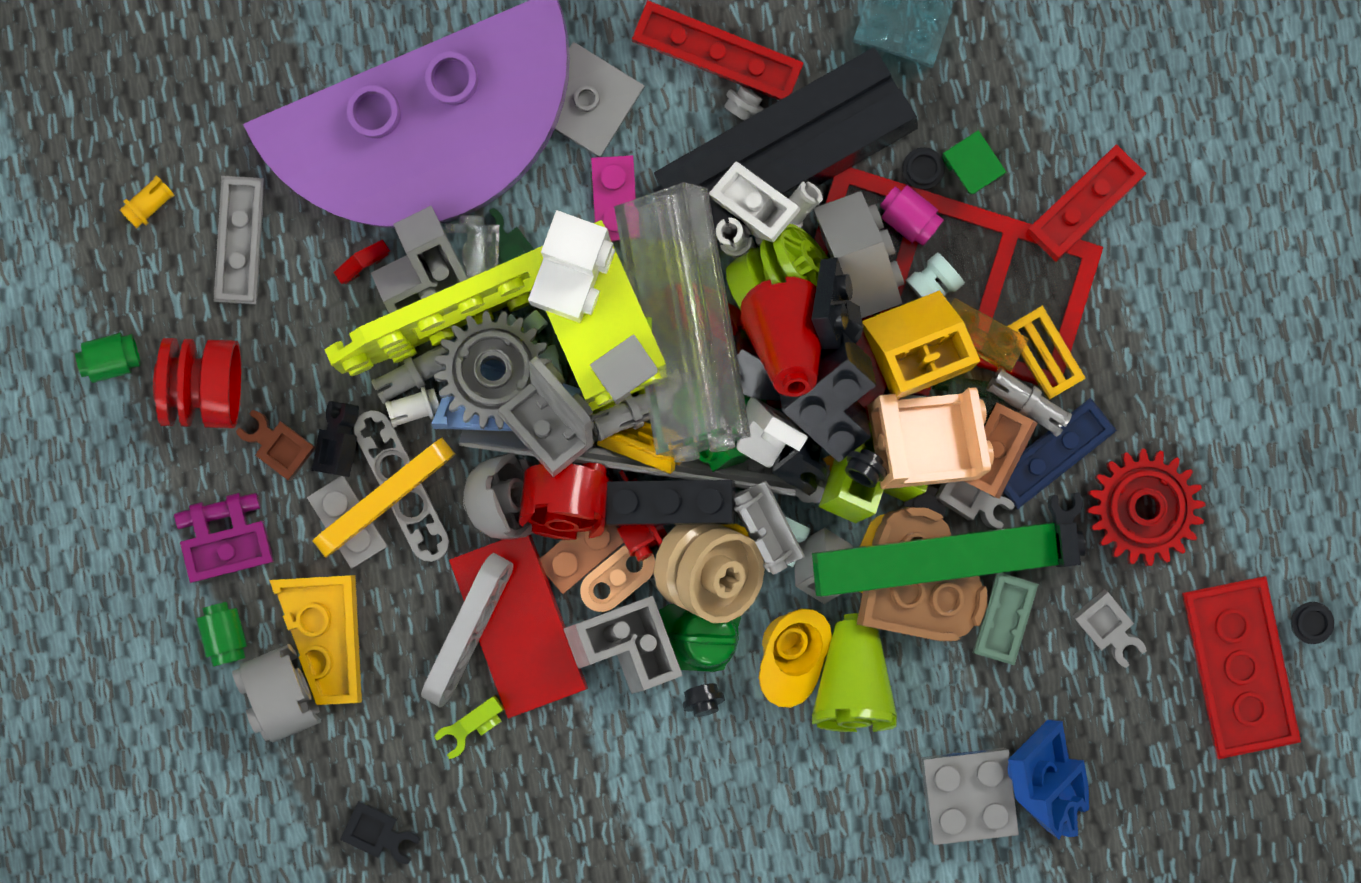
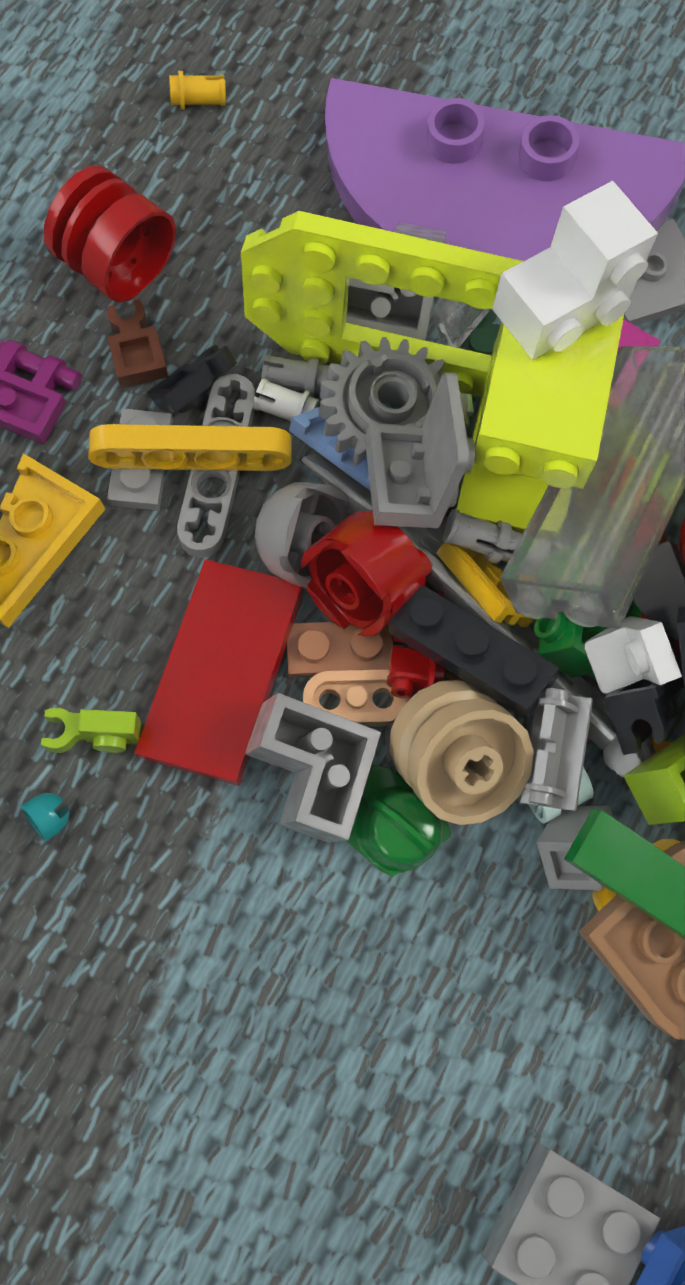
camera: 30 degrees right, 15 degrees down
(108, 357) = (46, 169): green brick -> none
(239, 240) = (248, 173): light grey tile -> none
(467, 630) = (165, 630): light grey beam -> none
(486, 795) = (41, 813): none -> teal hinge
(624, 368) = (550, 412): light grey panel -> none
(703, 699) = (348, 889): black plate -> none
(793, 656) = (482, 915): yellow piece -> none
(854, 681) = (528, 999): lime cone -> none

